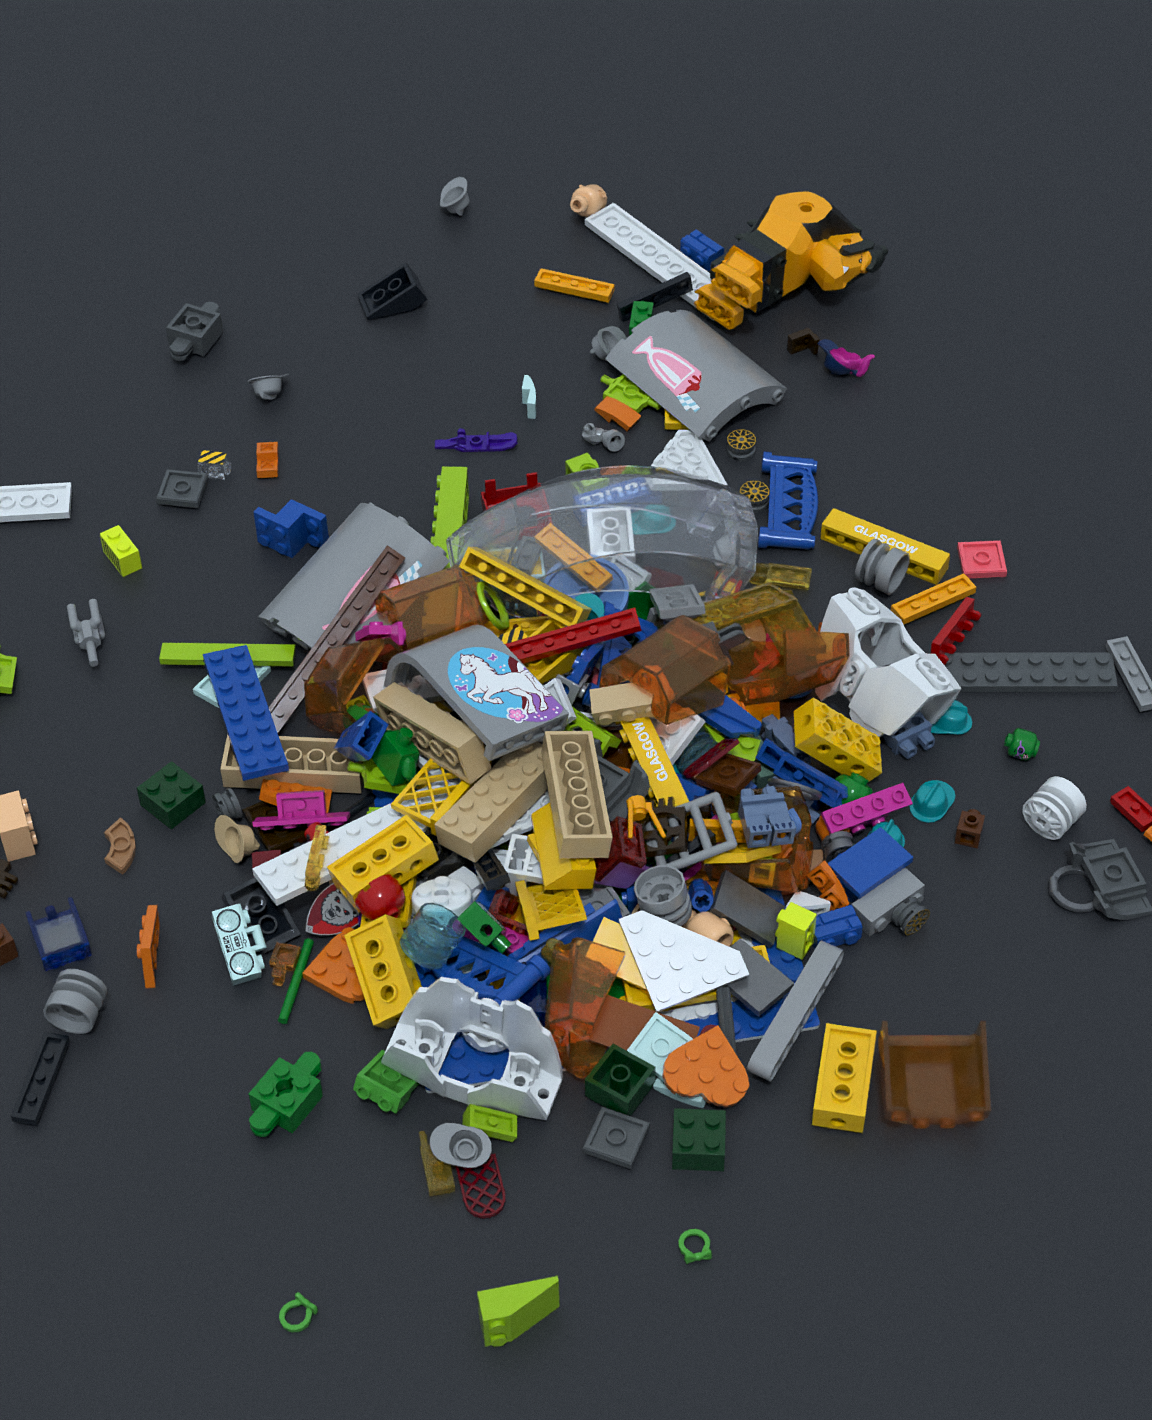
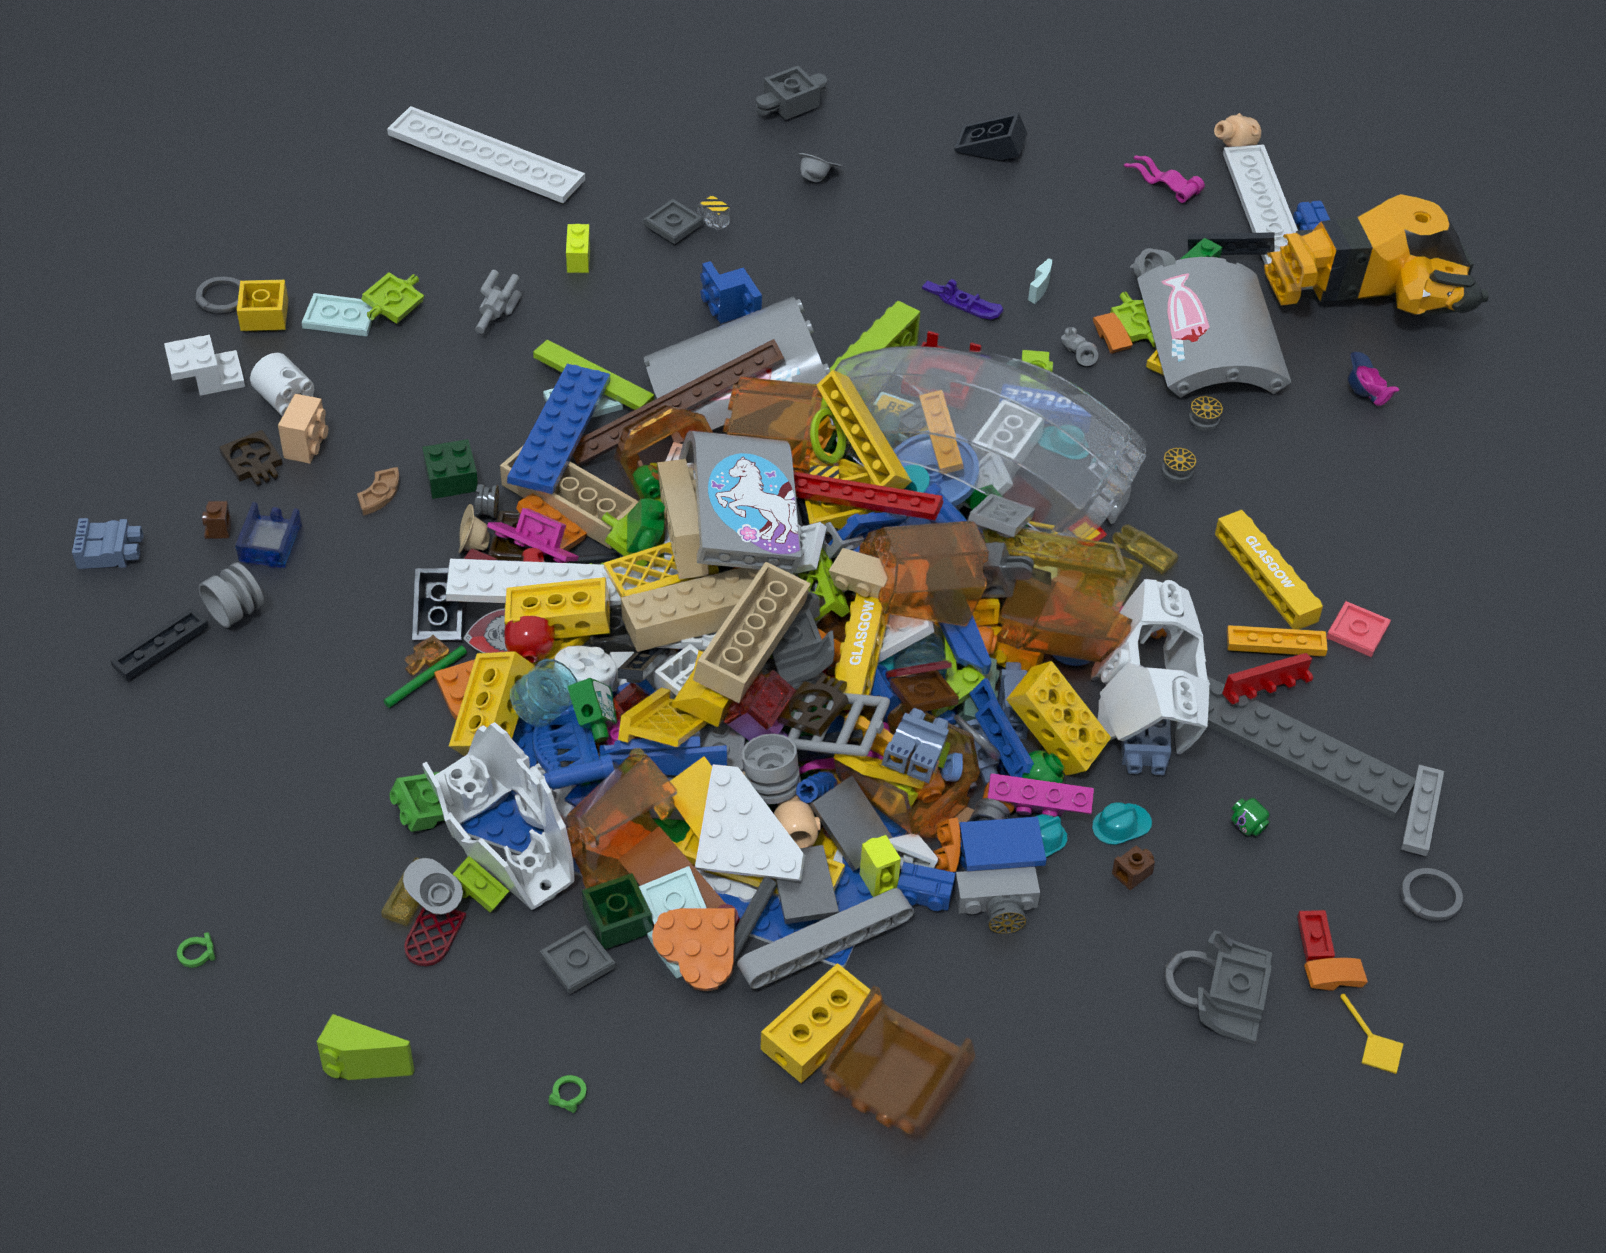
camera: 30 degrees right, 0 degrees up
(148, 944) = (328, 579): orange wing -> none
(238, 954) = (393, 617): light aqua piece -> none
(267, 459) = (766, 231): orange slope -> none
(297, 1095) = (338, 775): green brick -> none
(316, 858) = (502, 574): clear yellow hinge -> none
(361, 738) = (625, 493): blue slope -> none
(378, 630) = (710, 411): dark pink bracket -> none
(455, 196) = (1118, 78): light grey piece -> none
(574, 285) = (1166, 202): light orange plate -> none
(580, 267) = (1183, 188): none -> dark pink flag
(637, 811) = (803, 675): light orange plant -> none
(689, 455) = (1140, 403): white plate -> none
(699, 1139) = (644, 1002): dark green brick -> none
(777, 533) = (1223, 451): blue piece -> none
(803, 340) = (1342, 346): dark brown bracket -> none
(882, 566) = (1244, 585): light grey wheel -> none
(954, 720) = (1201, 759): teal piece -> none
(1054, 808) = (1228, 890): white wheel -> none

